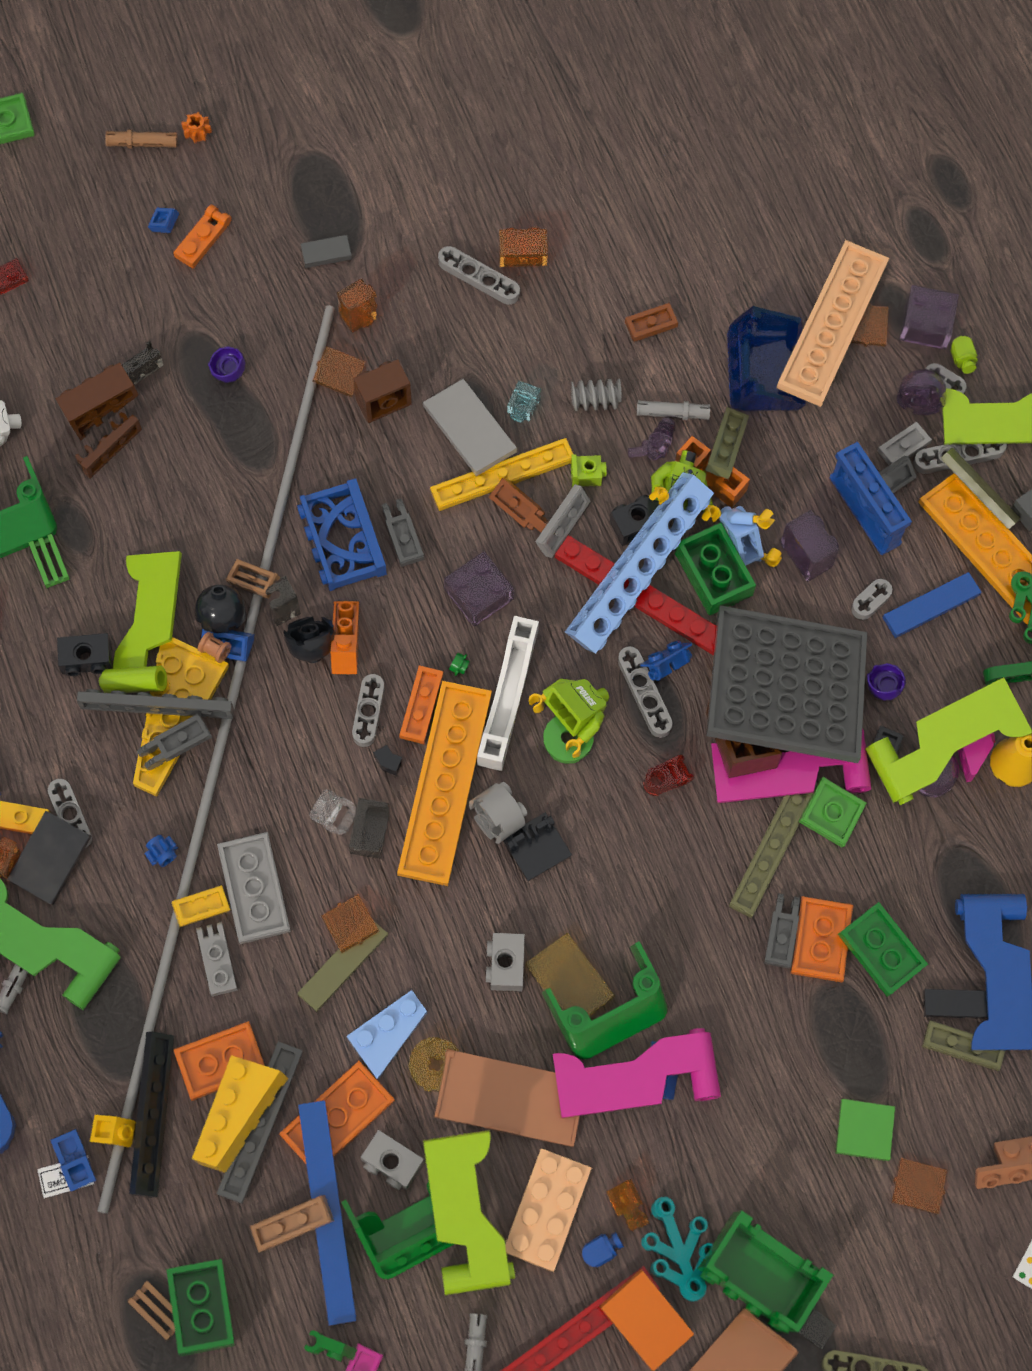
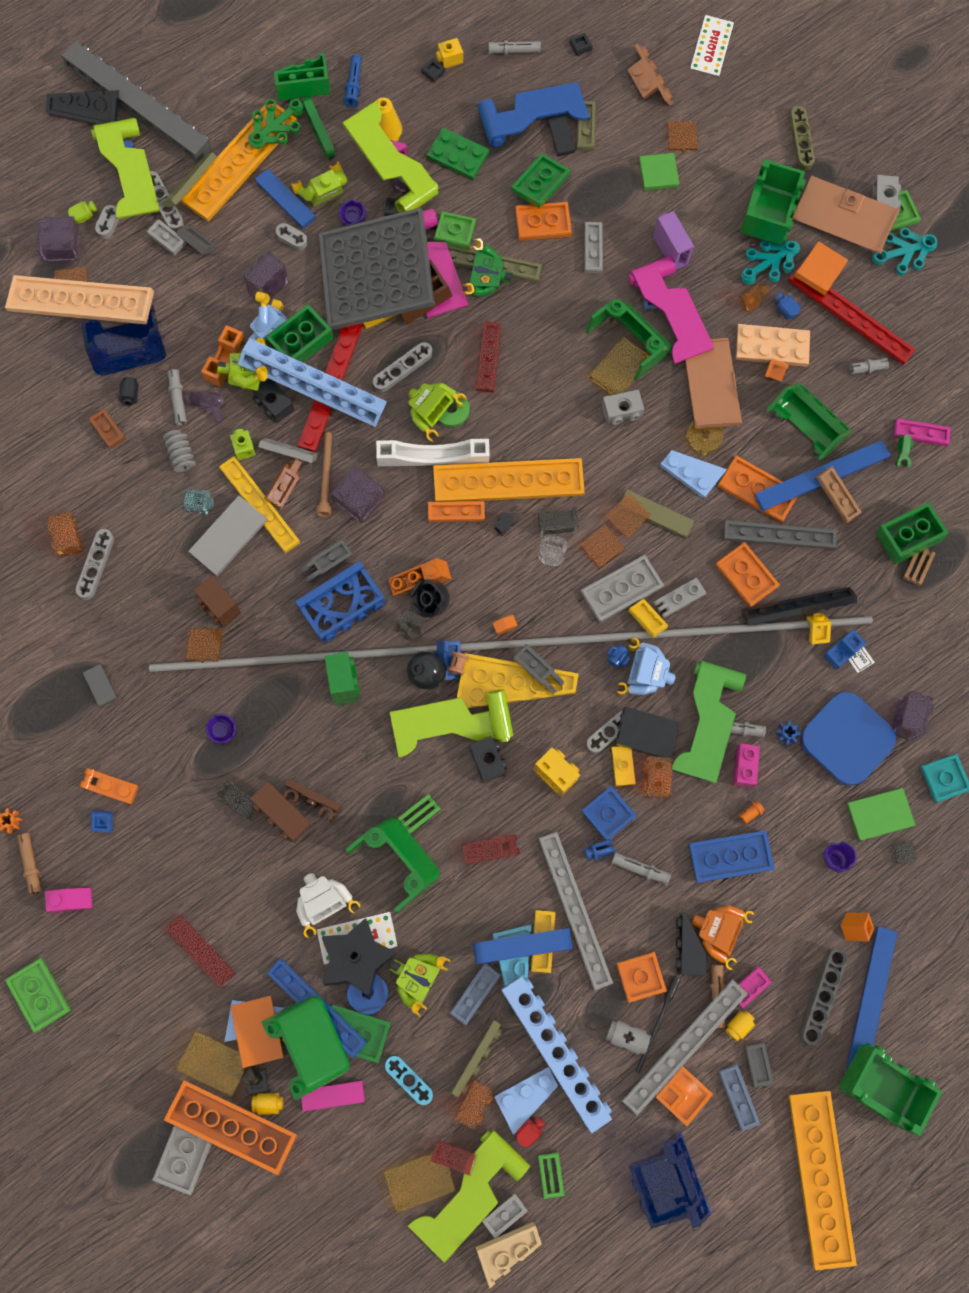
camera: 110 degrees left, 5 degrees up
(36, 726) = (557, 771): none -> yellow piece
(85, 168) = (68, 900): none -> dark pink slope
(129, 882) = (648, 670): none -> light blue torso
(146, 703) = (516, 698): dark grey plate -> none
(235, 502) = (342, 678): none -> green brick
(236, 1110) = (780, 545): yellow wedge -> none
(246, 586) = (390, 672): medium nougat tile -> none
(250, 721) = (505, 624): none -> orange piece
(320, 880) = (602, 546): none -> clear orange piece
(357, 305) = (148, 640): clear orange brick -> none
(365, 692) = (456, 545): light grey beam -> none
(384, 1146) = (777, 434): light grey brick -> none
(459, 664) = (418, 494): green plate -> none
(459, 1213) = (803, 382): lime door -> none
(475, 546) = (324, 508): none -> medium nougat piece
(498, 812) = (522, 435): light grey brick -> none
(506, 1197) = (776, 369): none -> orange panel
(537, 846) = (535, 410): black hinge -> none
(630, 805) = (489, 357): none -> clear red plate
(672, 774) = (458, 335): clear red piece -> none
(675, 654) = (374, 356): blue hinge -> none
(695, 356) = (128, 391): none -> black brick
(727, 443) = (199, 348): olive plate -> none
(740, 1105) = (673, 239): none -> medium lavender brick
(752, 831) = (486, 271): none -> green torso
(764, 997) = (593, 247): none -> light grey tile
(782, 934) = (546, 243): dark grey hinge -> none
(869, 498) = (220, 243): blue fence -> none
(922, 392) = (121, 229): clear purple cylinder -> none
(934, 656) = (323, 186): none -> lime torso
(954, 850) = (457, 154): none -> green plate

